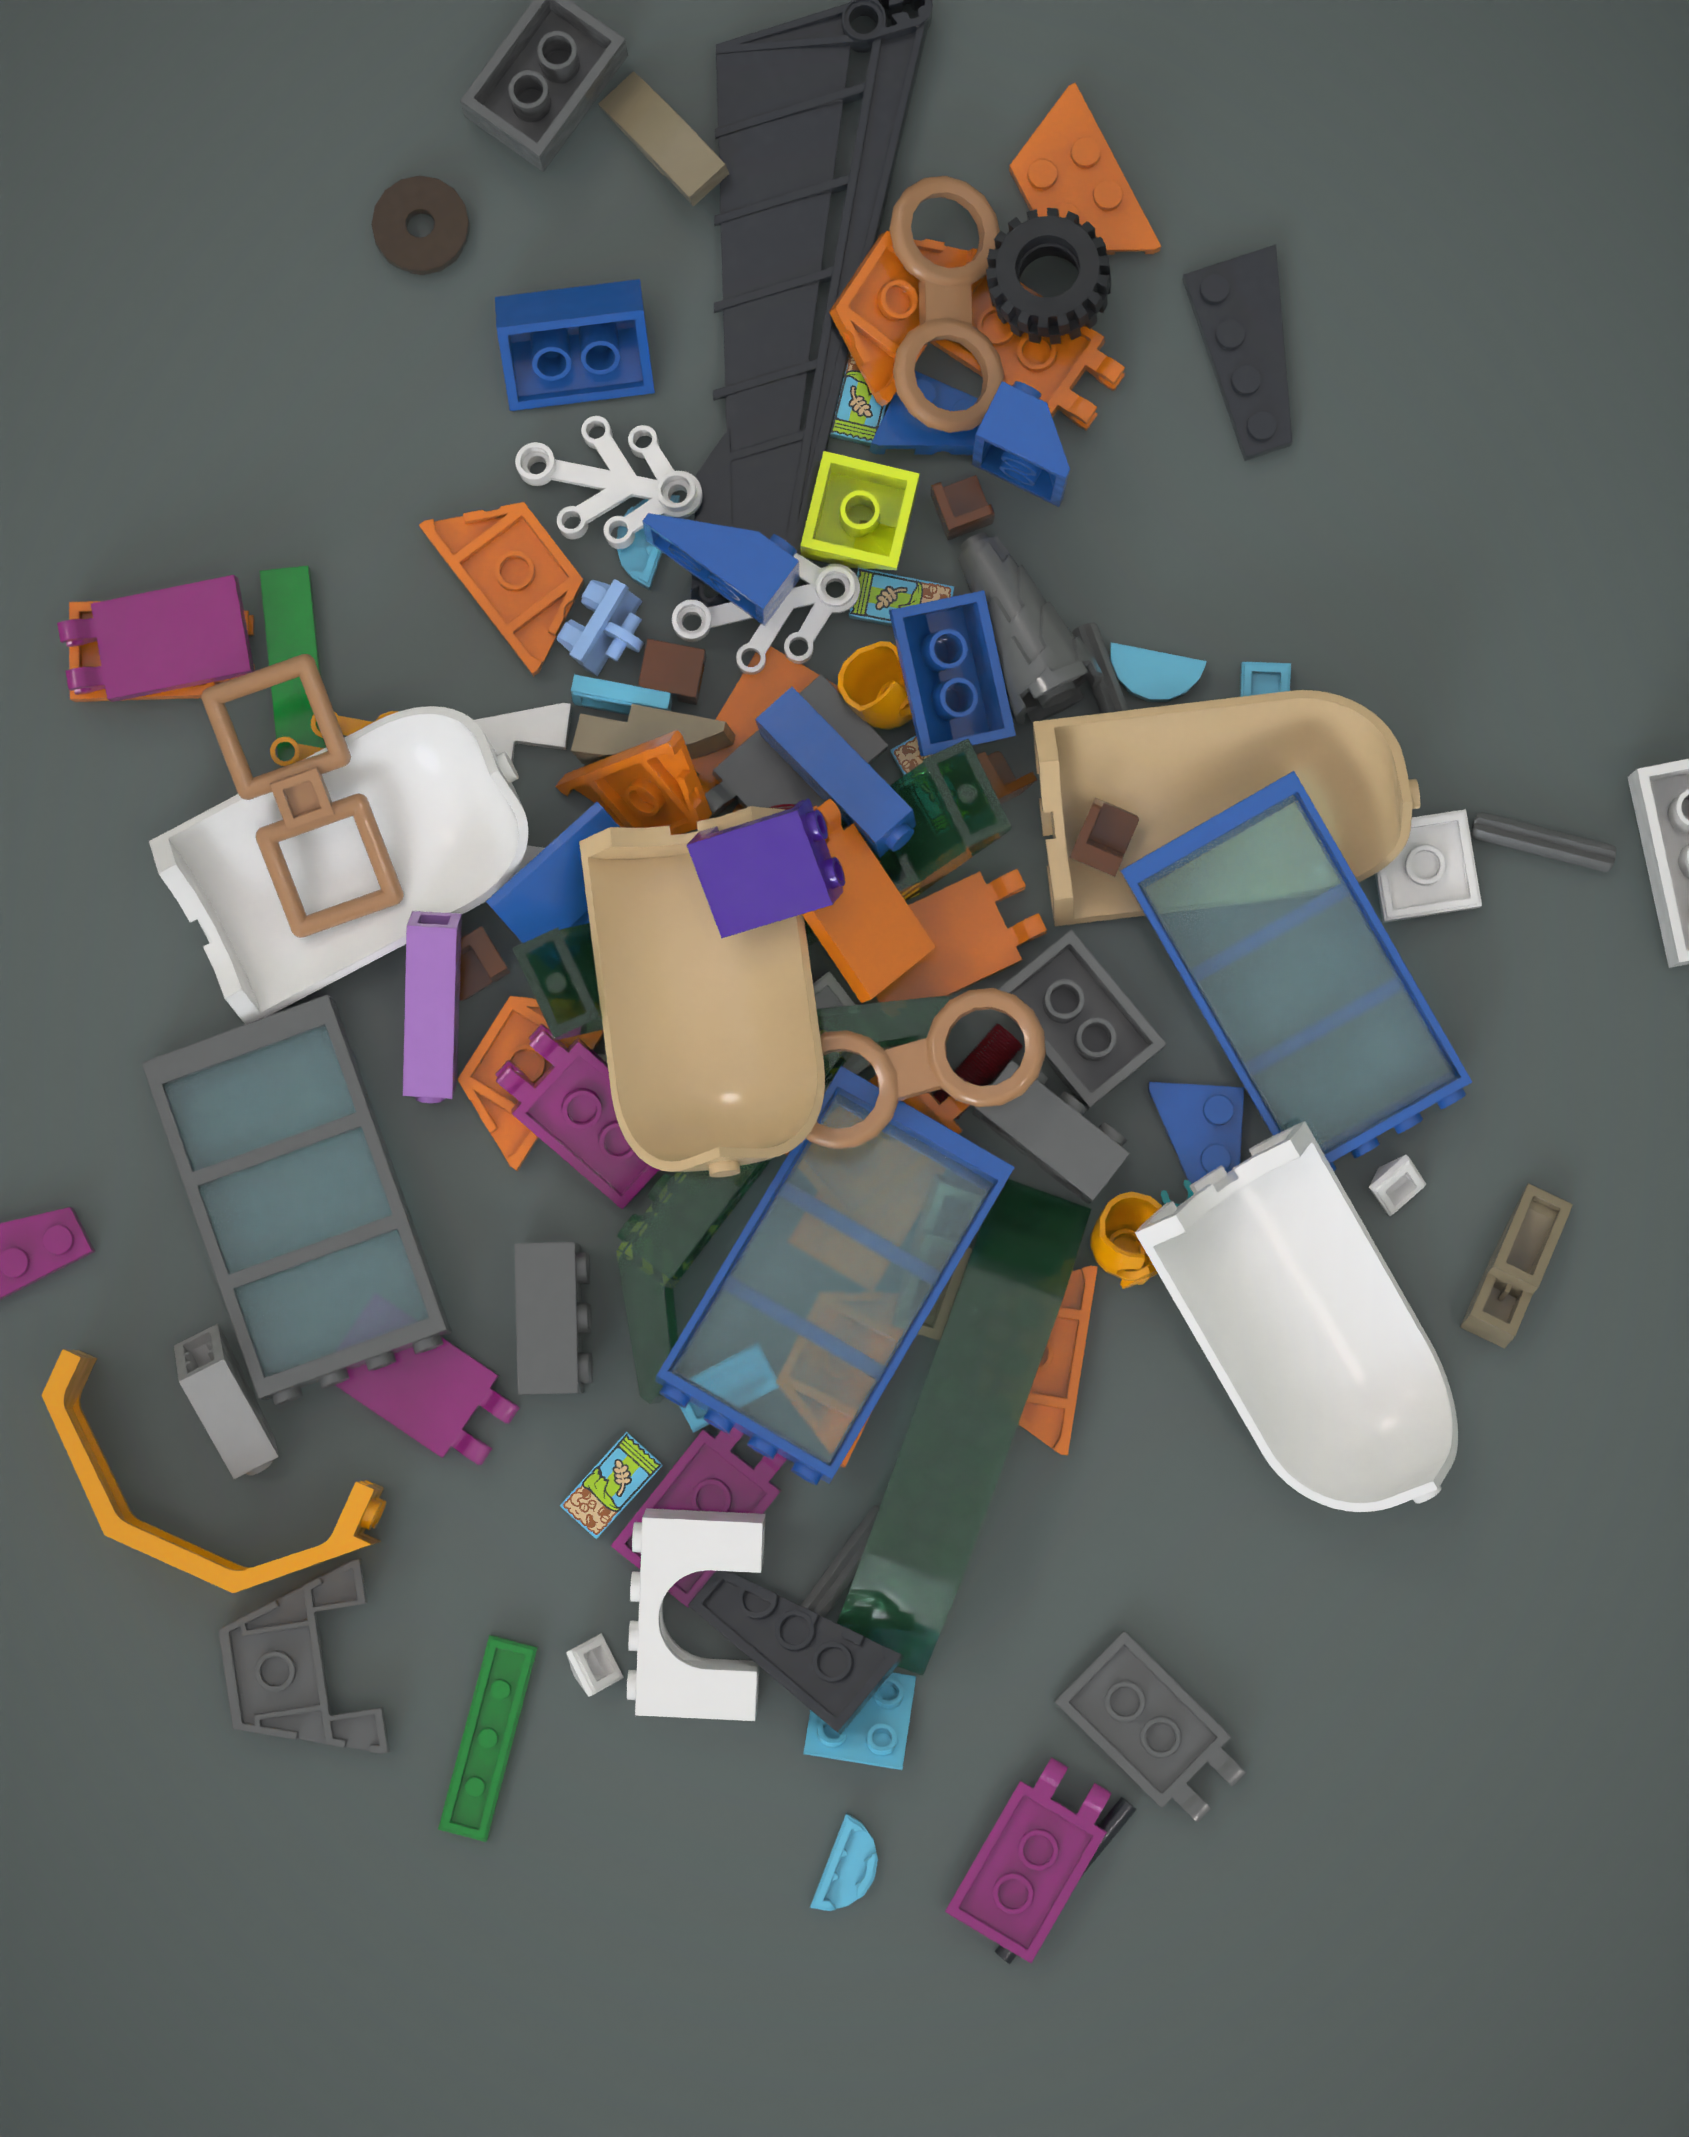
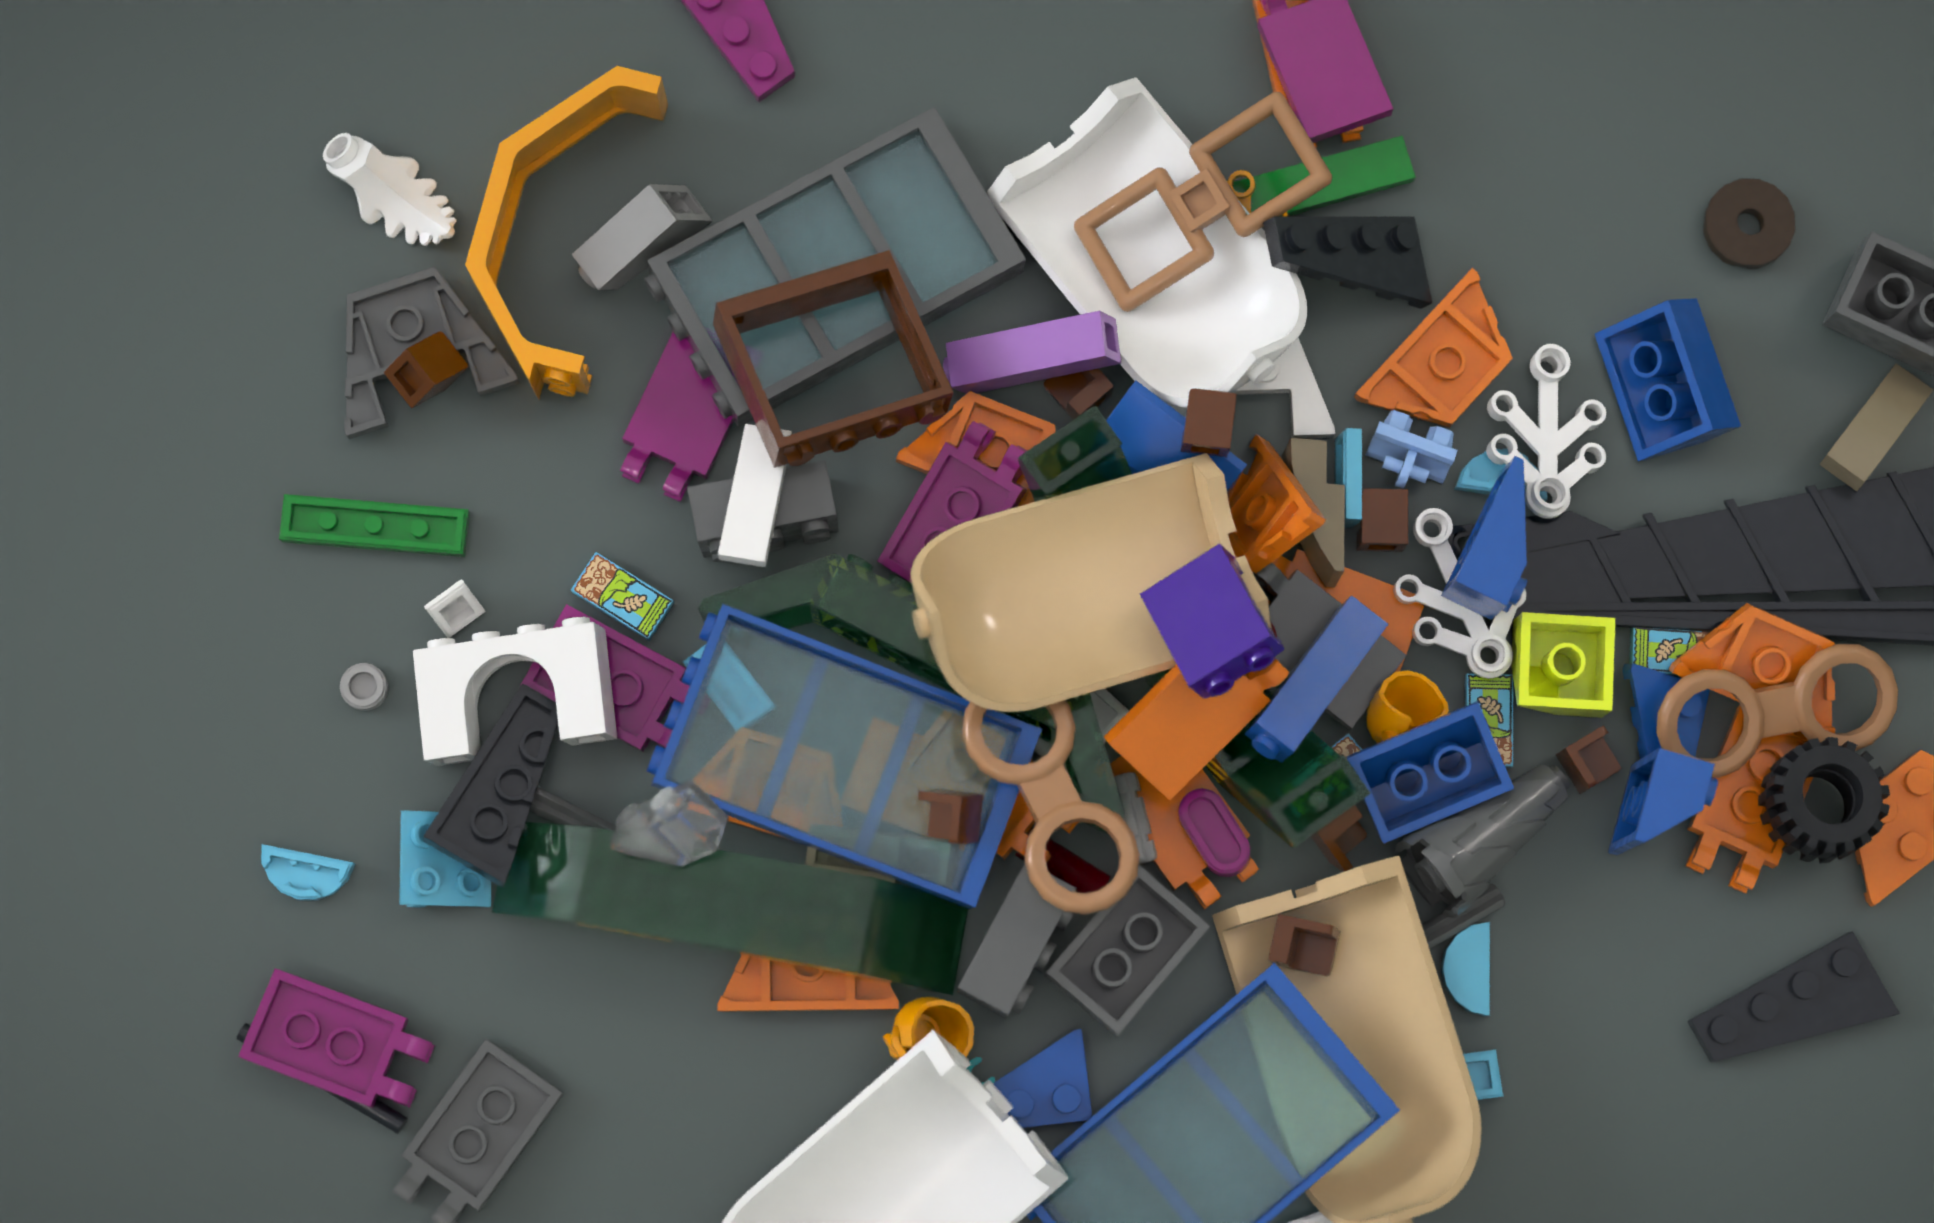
camera: 75 degrees right, 5 degrees down
(122, 1666) = (388, 190): none -> white plant
(330, 1228) = (814, 293): none -> reddish brown window
(331, 1655) = (426, 369): none -> reddish brown panel
(383, 645) = (1354, 250): none -> black wing
(541, 1323) = (752, 503): none -> white tile
(549, 832) = (1209, 422): none -> reddish brown panel
(660, 1774) = (364, 686): none -> light grey tile
(881, 1468) = (671, 827): none -> clear slope
(916, 1172) = (953, 814): none -> reddish brown panel
(940, 985) = (1136, 815): none -> light grey axle
(972, 907) = (1214, 832): none -> magenta tile

